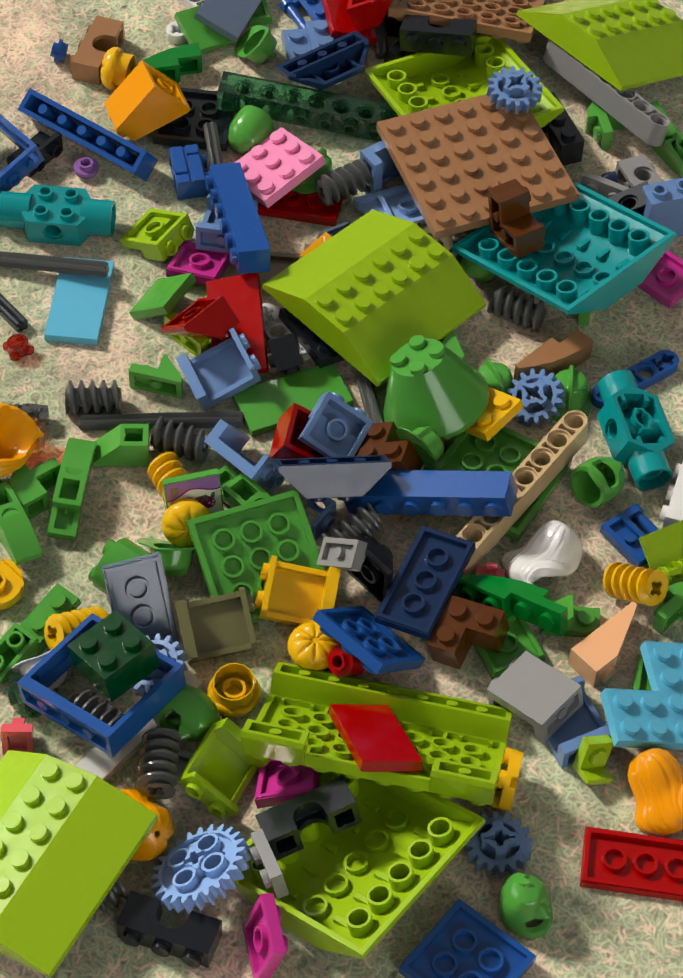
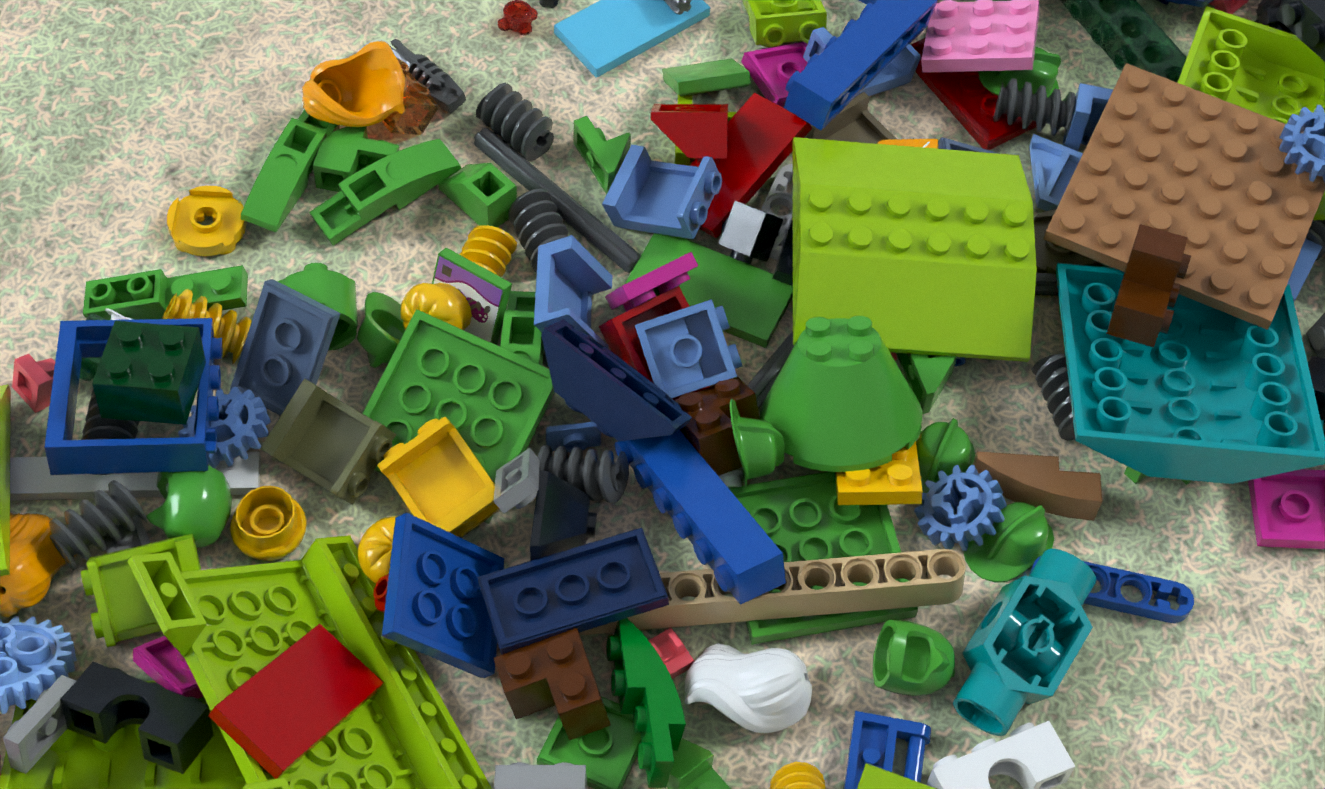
camera: 45 degrees right, 5 degrees up
(276, 413) = (643, 288): none -> dark pink plate

